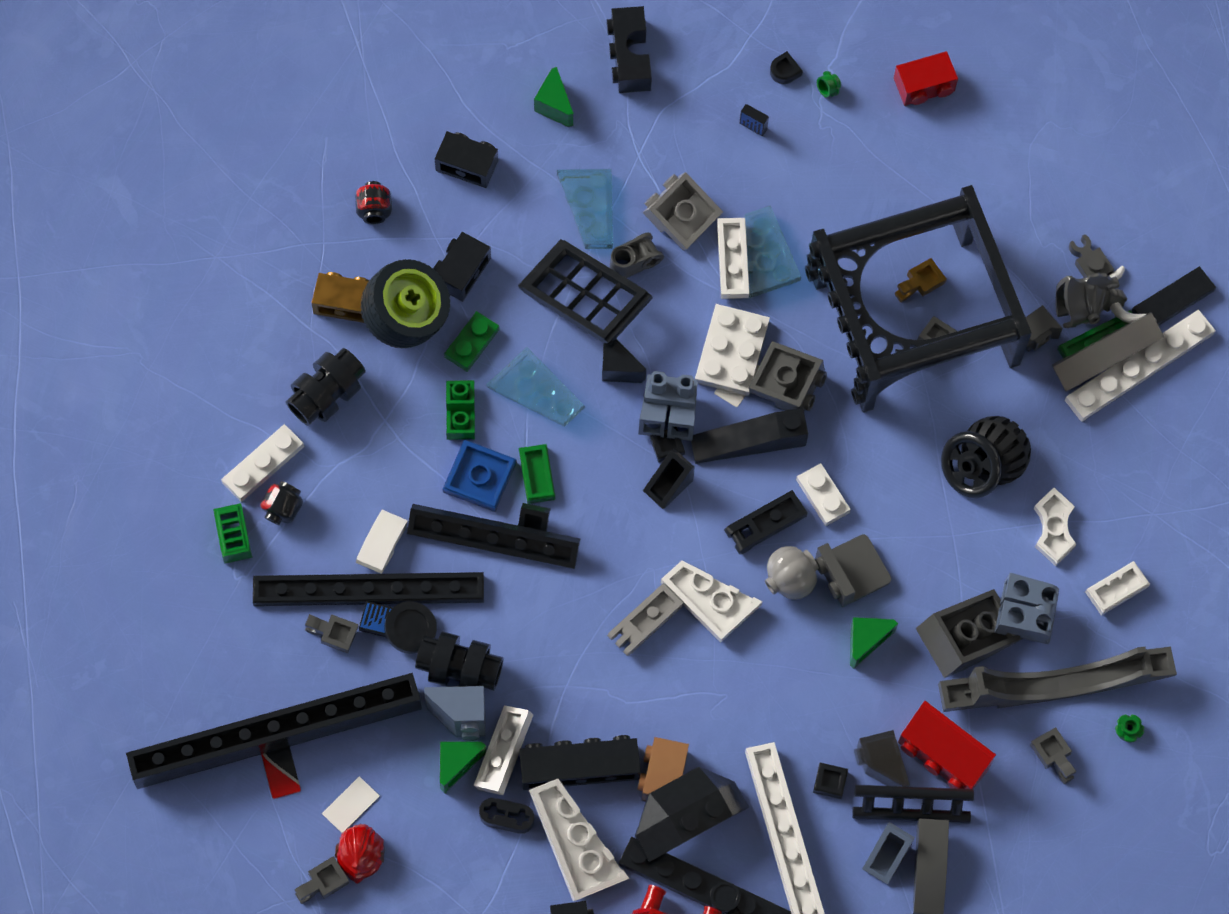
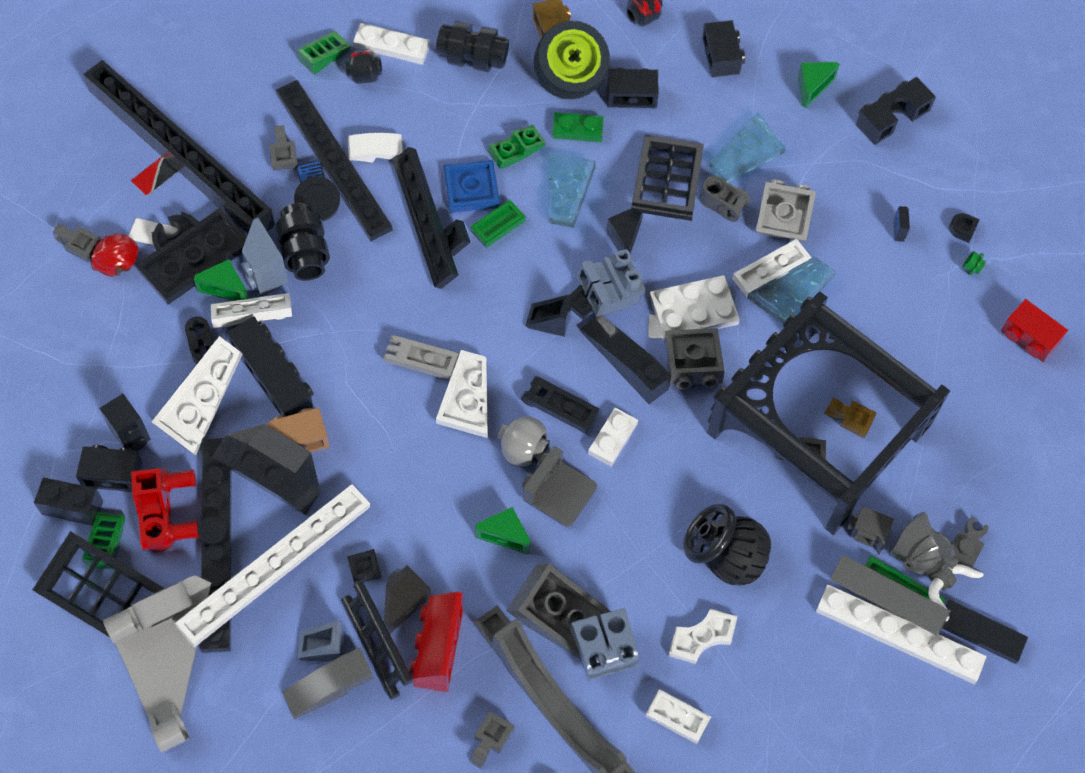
camera: 60 degrees right, 5 degrees down
(401, 777) = (189, 252): none -> black plate

